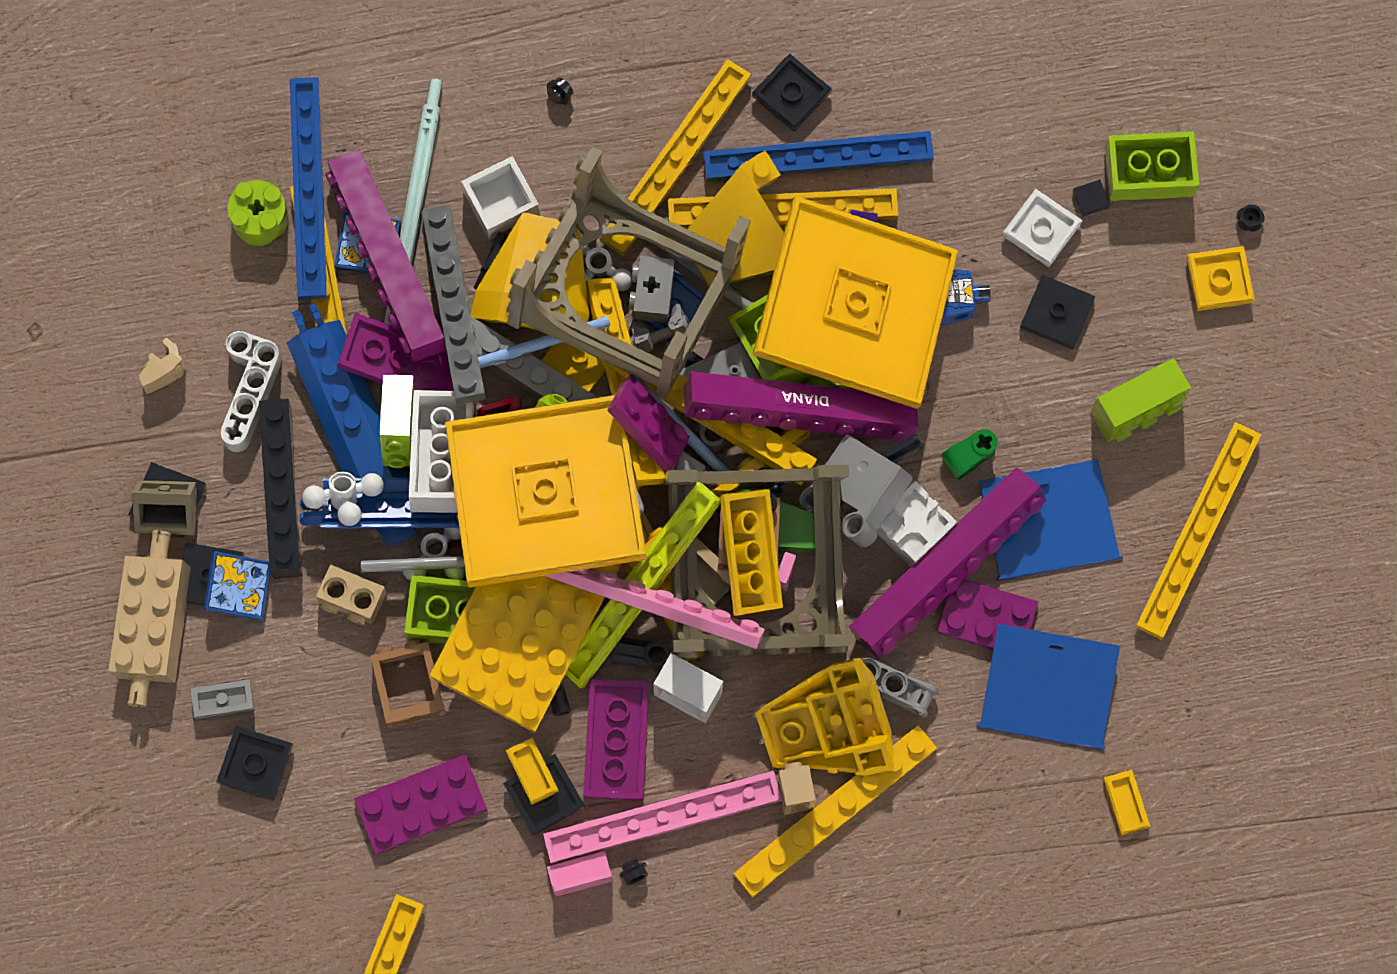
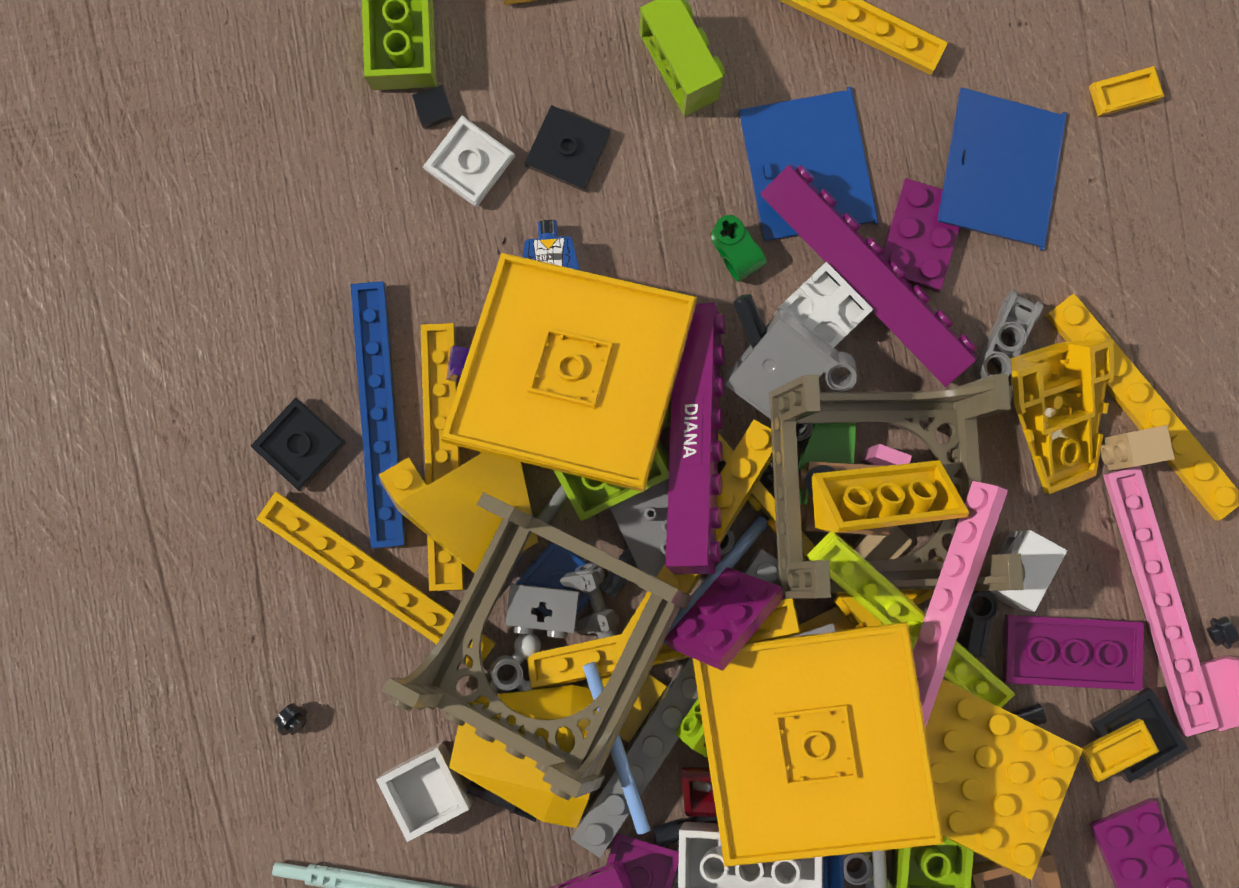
camera: 85 degrees left, 10 degrees up
(453, 305) = (567, 851): dark grey plate -> none

